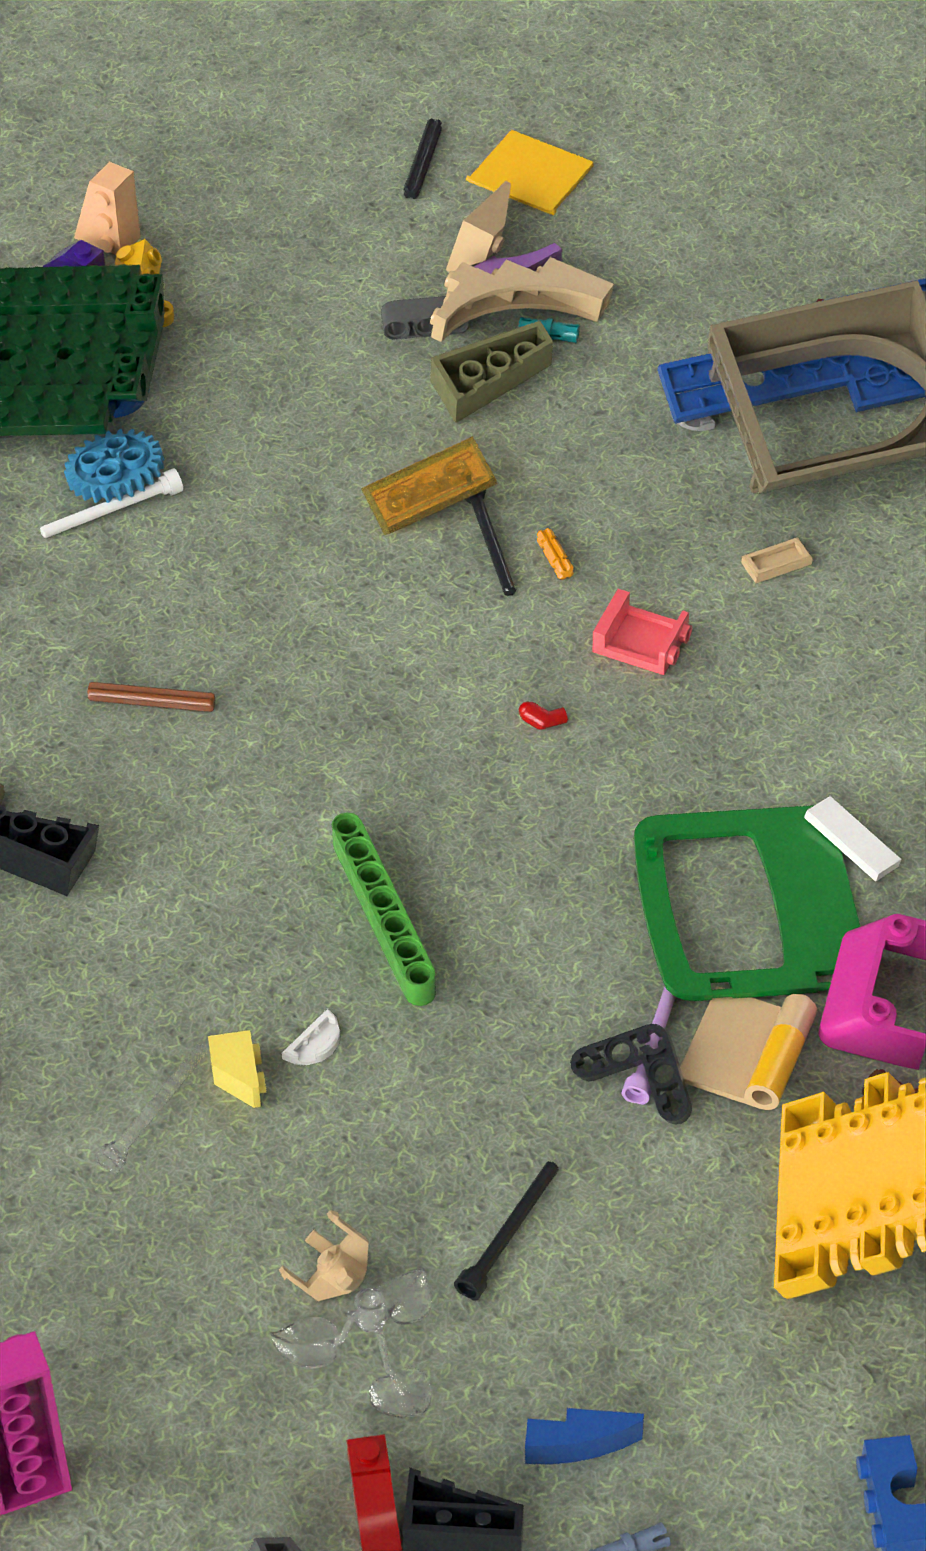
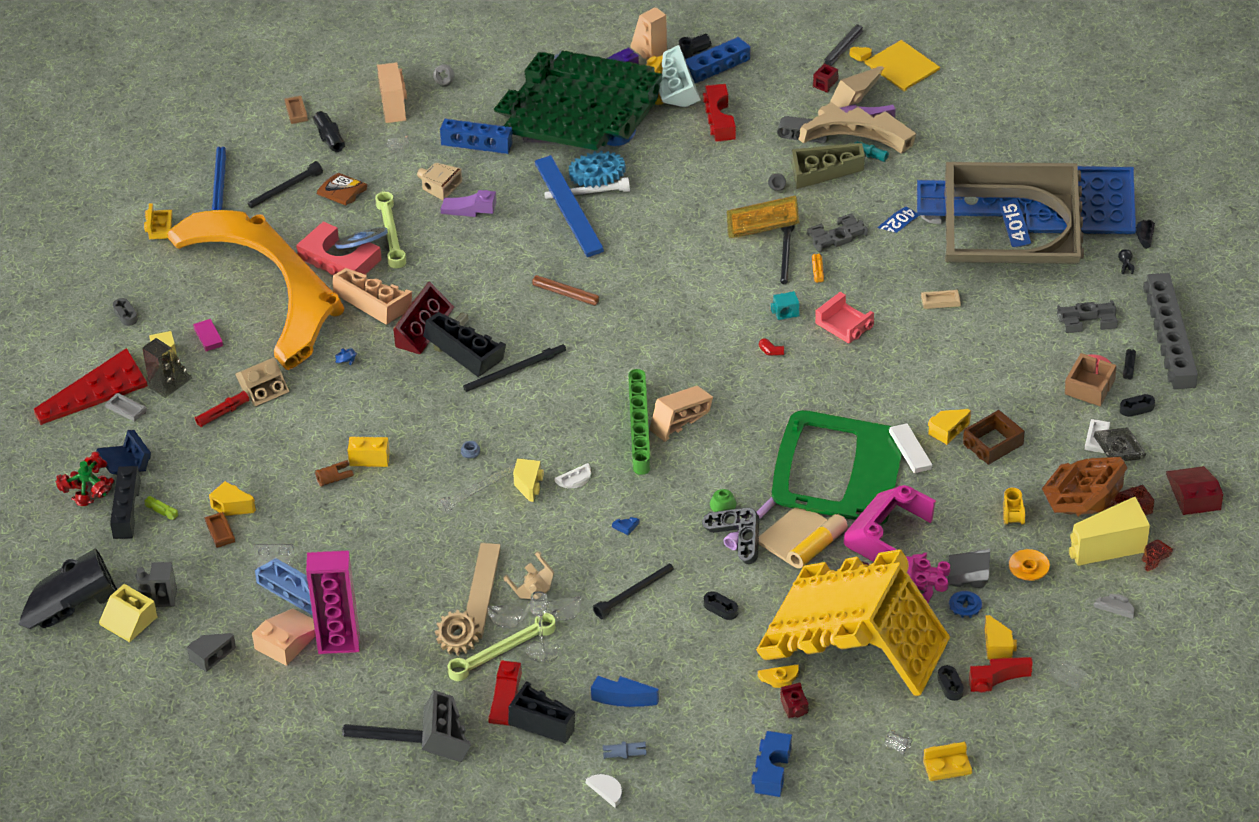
camera: 20 degrees right, 5 degrees down
(94, 543) = (569, 206): none -> blue tile
(111, 1030) = (470, 449): none -> sand blue plate
(168, 824) = (546, 354): none -> black bar
(177, 213) = (693, 45): none -> black piece
(189, 286) = (677, 83): none -> light aqua wedge
(230, 229) = (718, 59): none -> blue brick
(237, 1383) = (455, 622): none -> tan gear
(243, 1306) = (483, 583): none -> tan tile
(288, 340) = (721, 125): none -> red arch
(322, 1412) = (499, 648): none -> yellowish green piece
(421, 220) = (825, 77): none -> dark red brick
(422, 418) = (777, 182): none -> dark grey tile
(440, 1108) = (626, 525): none -> blue tile
(443, 869) = (678, 409): none -> light nougat wedge
(456, 167) = (860, 53): none -> yellow tile
(535, 634) = (785, 305): none -> teal brick
(547, 501) = (850, 229): none -> dark grey piece
(588, 1020) = (722, 501): none -> bright green cone
(645, 438) = (899, 220): none -> blue sticker
(669, 1216) = (721, 605): none -> black beam
(828, 1323) = (779, 676): none -> yellow plate
(837, 400) = (1014, 222): none -> blue sticker
(865, 1366) = (794, 700): none -> dark red brick
(894, 780) = (949, 424): none -> yellow slope

